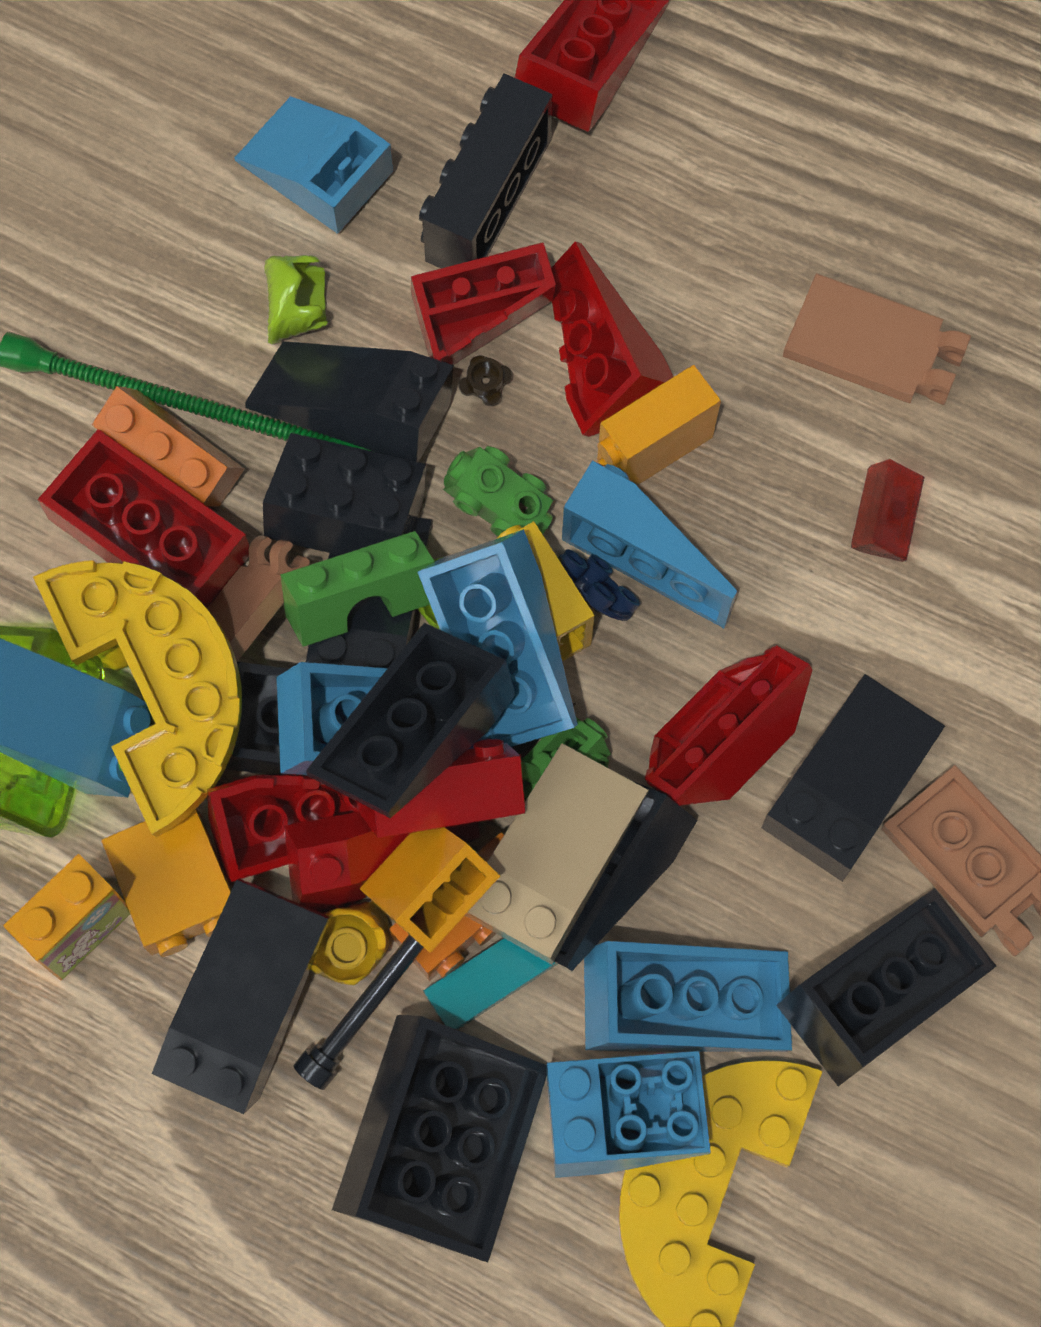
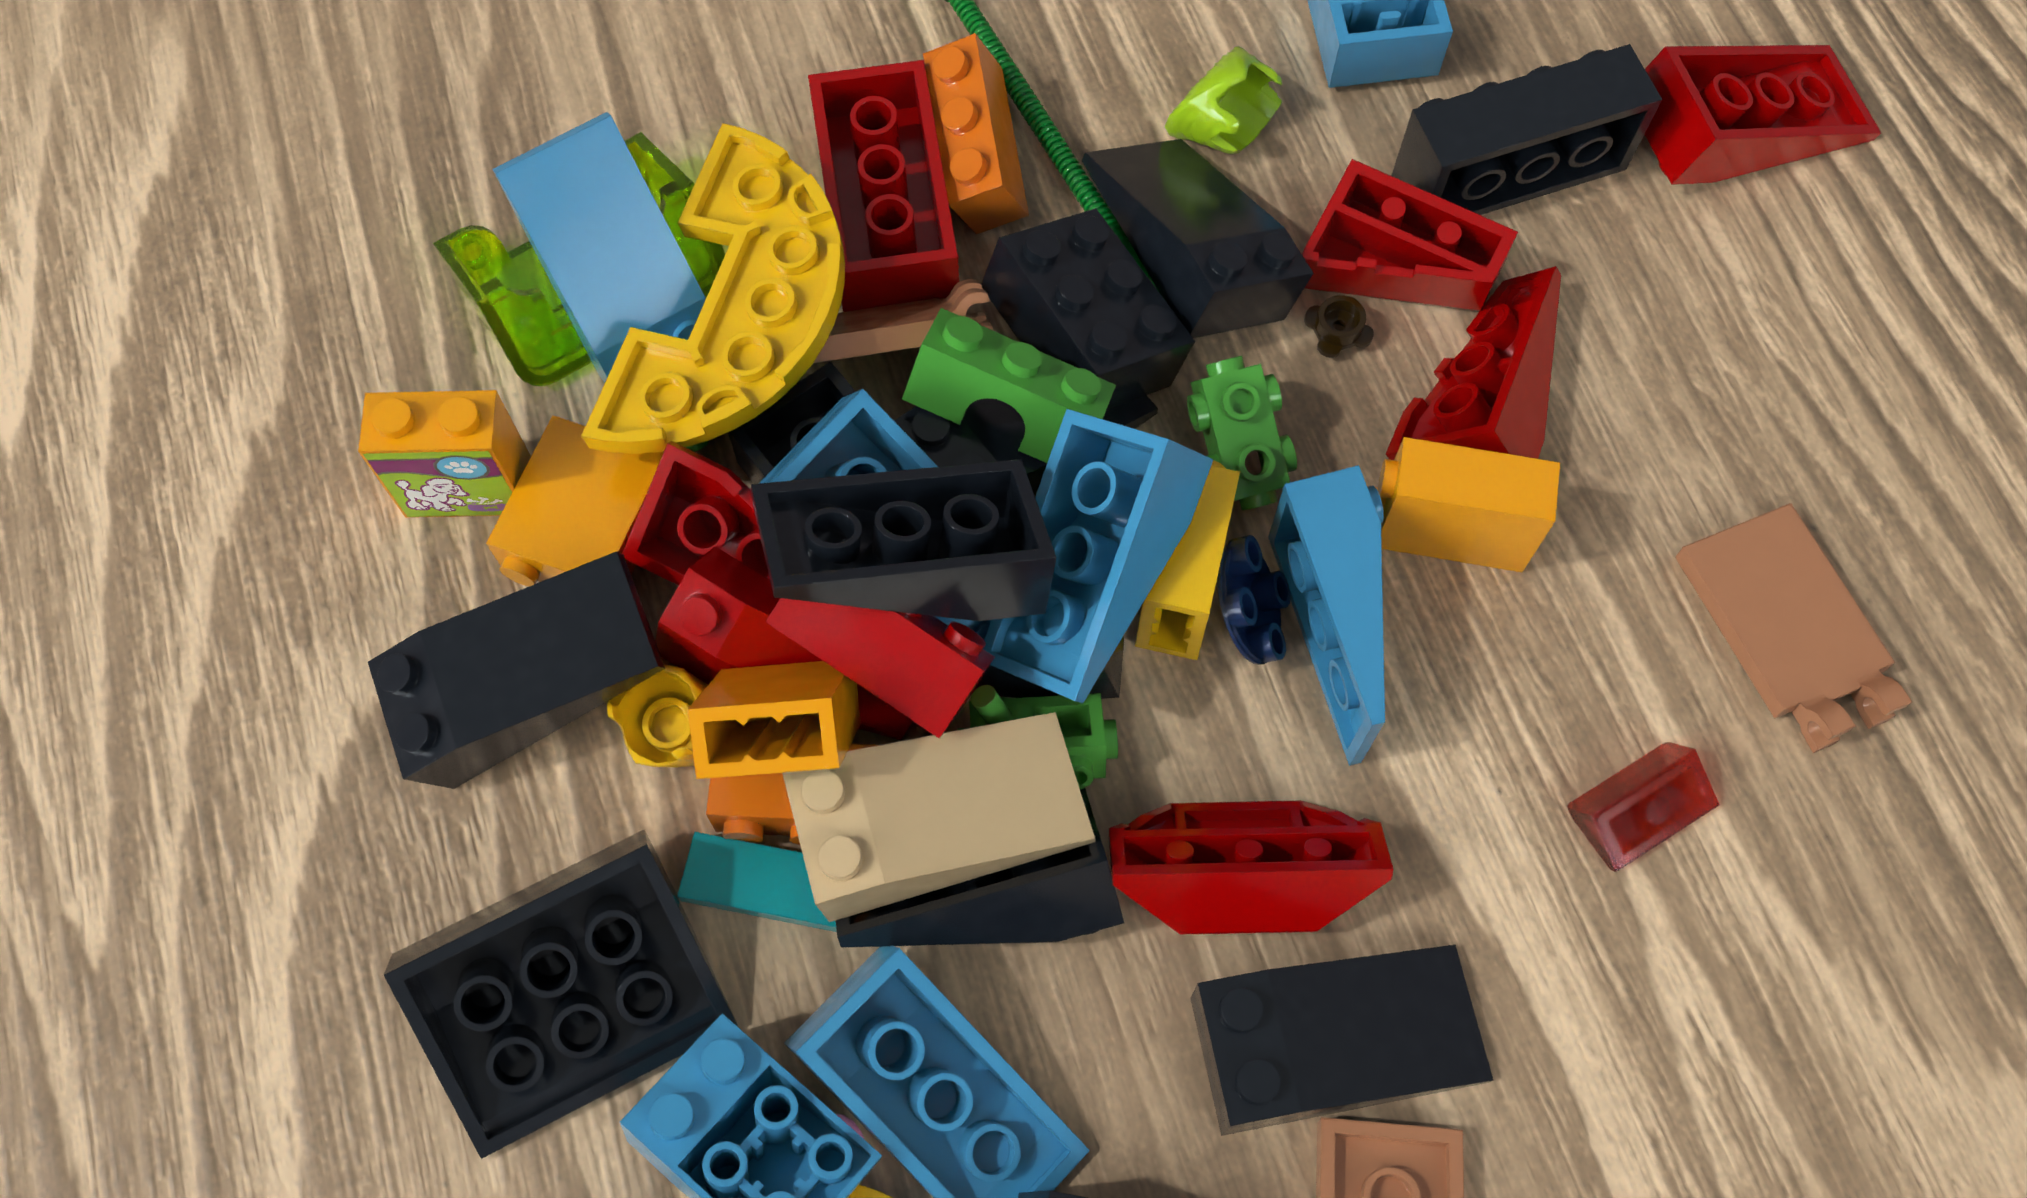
camera: 45 degrees right, 5 degrees down
(319, 1064) = (527, 805): black piece -> none

